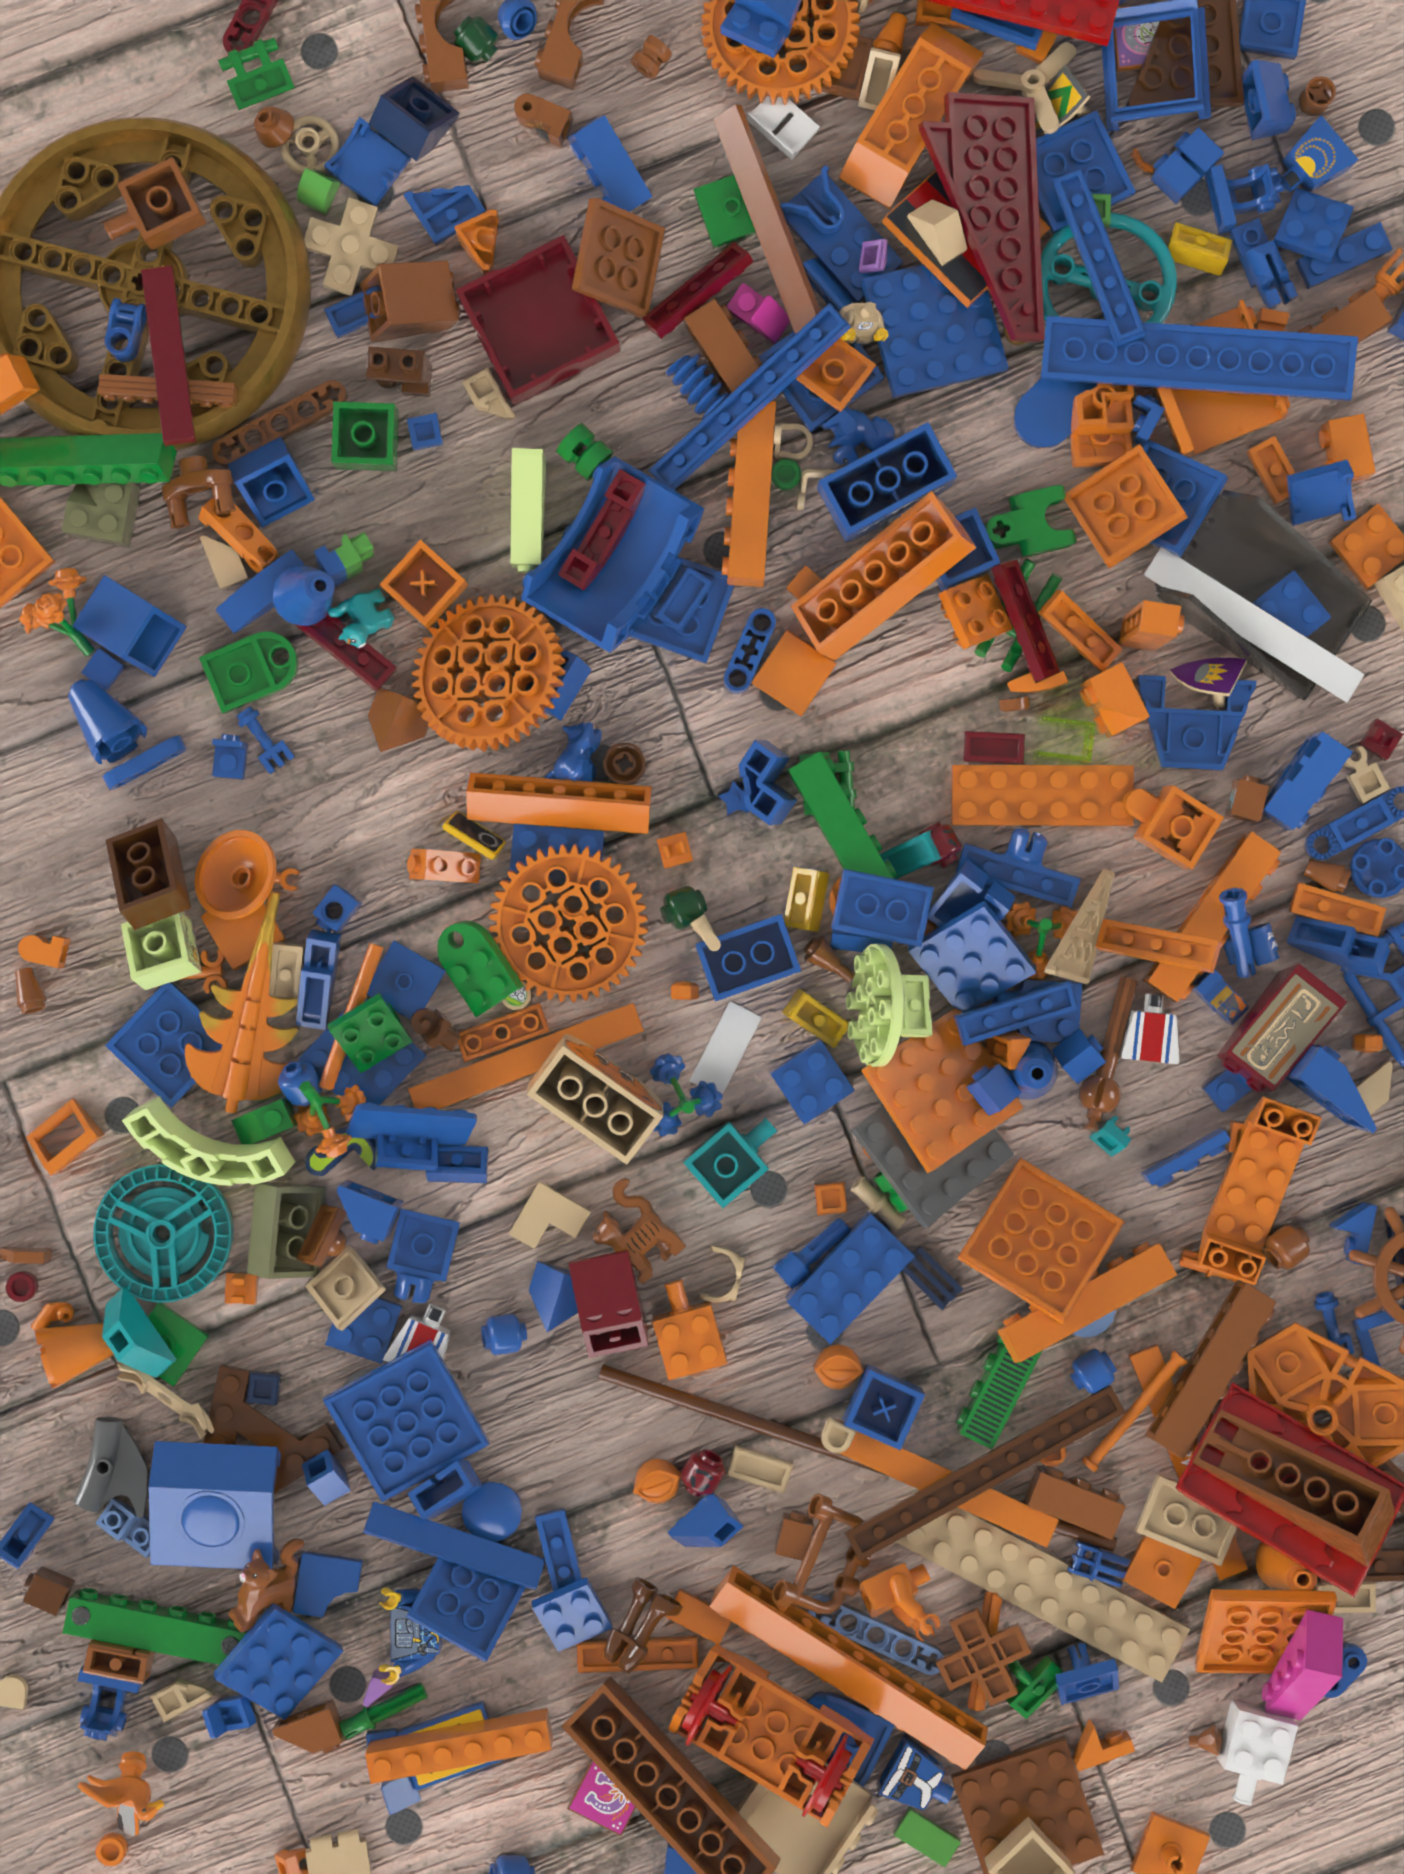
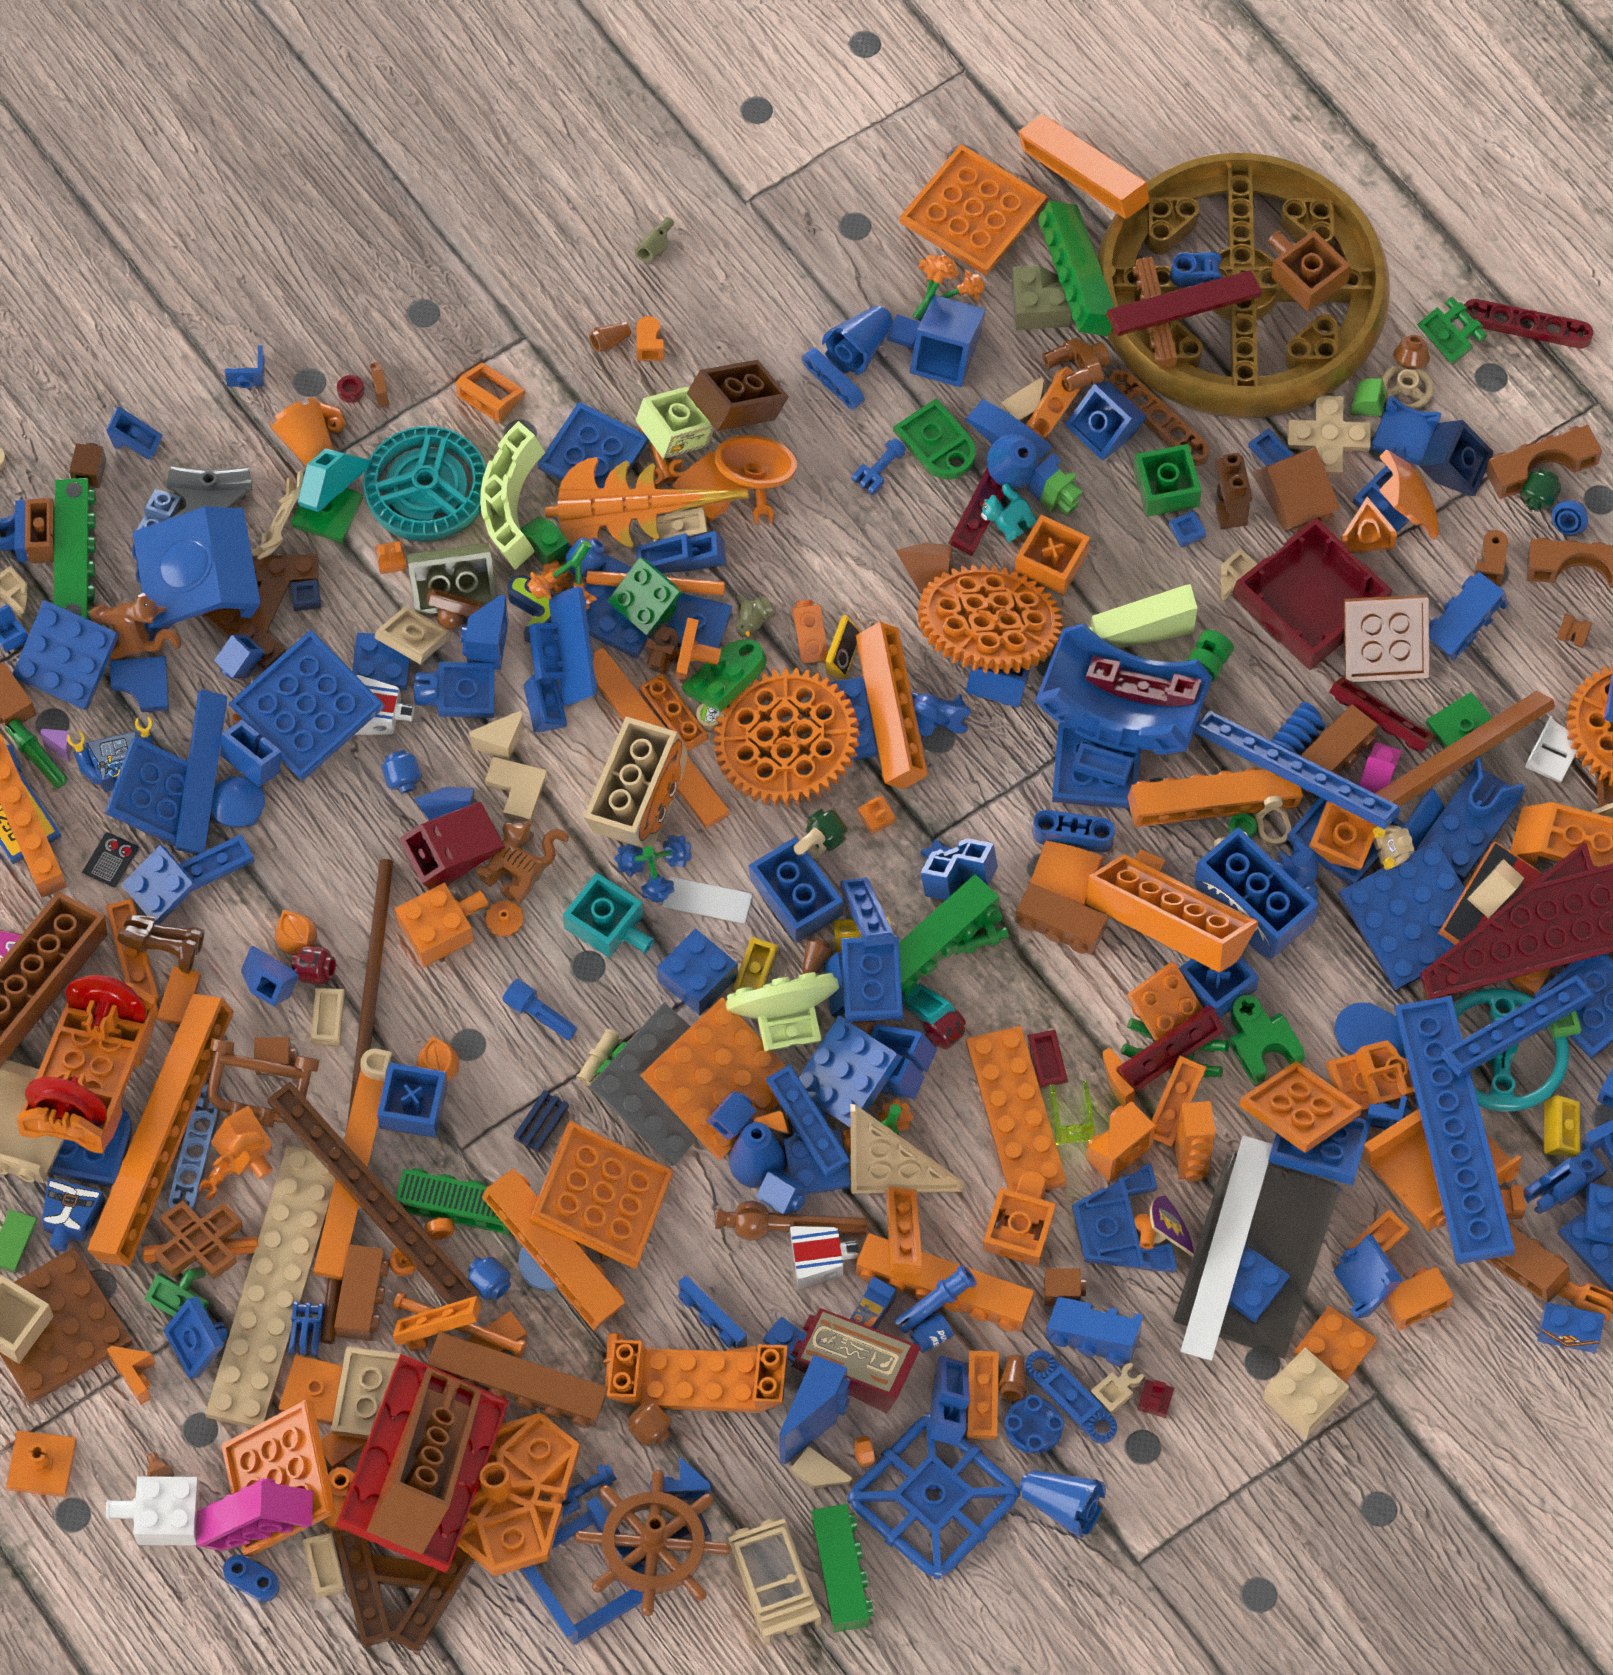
camera: 75 degrees right, 25 degrees down
(229, 757) = (857, 443): blue bracket -> none
(348, 903) = (751, 563): blue brick -> none
(411, 921) = (753, 614): none -> olive animal
(447, 998) = (692, 651): none -> orange tile
(452, 181) = (1409, 493): none -> orange slope
(488, 1221) = (499, 736): none -> tan slope
(523, 1654) = (110, 859): none -> black sticker
(624, 763) = (942, 753): reddish brown wheel -> none
(684, 990) = (751, 848): orange tile -> none
(694, 1263) = (504, 918): none -> orange piece
(739, 1265) = (509, 955): tan cap -> none
(799, 892) = (867, 912): none -> blue tile
(830, 1198) = (593, 1018): orange tile -> none
(847, 692) = (1061, 919): none -> dark orange brick
(849, 1277) = (525, 1045): blue brick -> none
(873, 256) = (1458, 846): medium lavender slope -> none
(1014, 704) = (1092, 1064): dark orange tile -> none
(1022, 868) = (943, 1105): blue plate -> none
(1025, 1408) = (439, 1228): none -> orange tile
(1110, 1137) = (712, 1242): teal tile -> none
(1134, 1436) = (416, 1328): none -> orange hinge
(1202, 701) = (1143, 1225): none -> orange arm

